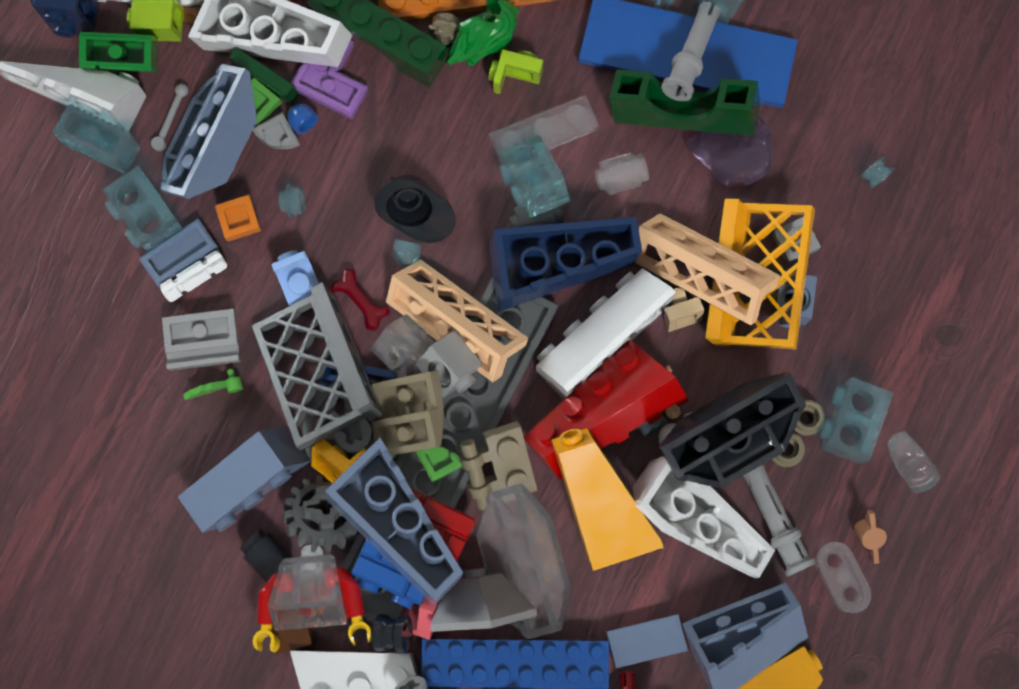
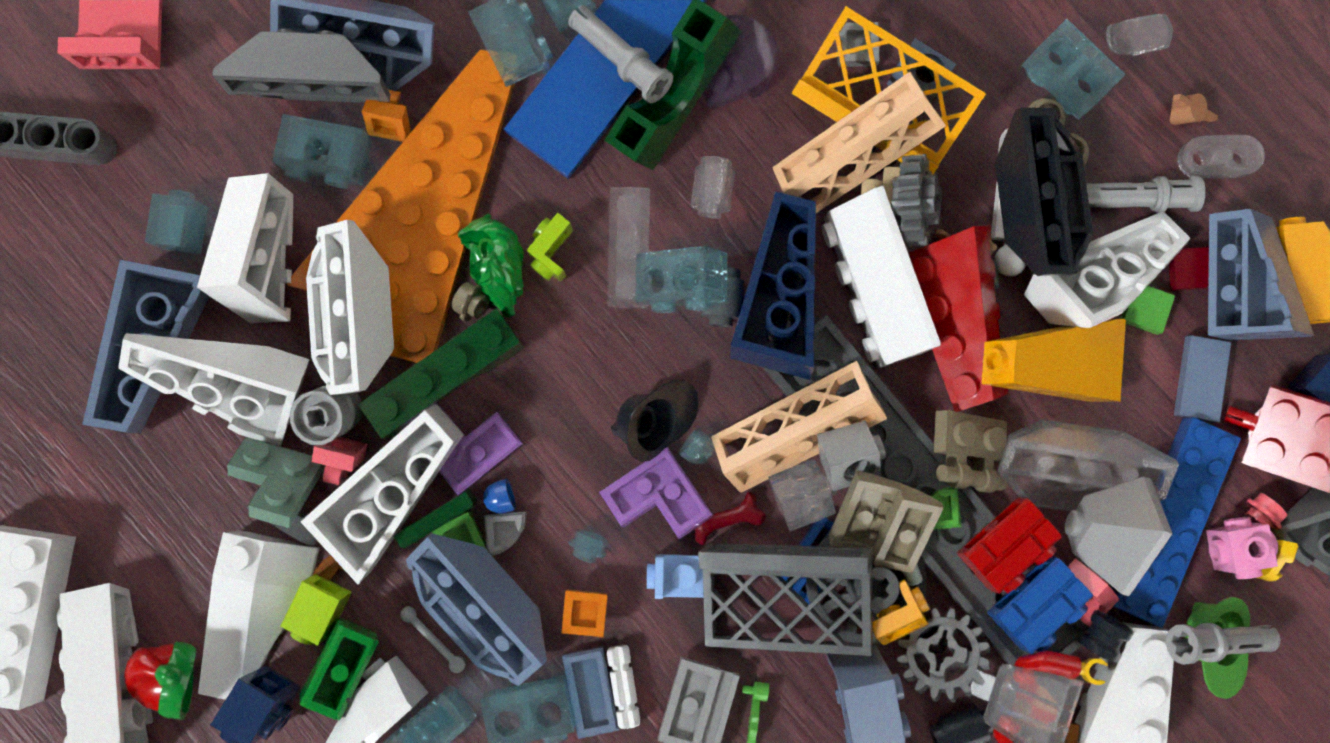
camera: 70 degrees left, 5 degrees up
(364, 237) = (659, 484): none -> medium lavender tile
(388, 514) = (999, 590): sand blue wedge -> none
(678, 327) = (916, 200): none -> dark grey gear
(685, 569) = (1149, 310): none -> bright green tile
(734, 589) = (1190, 269): none -> dark red tile

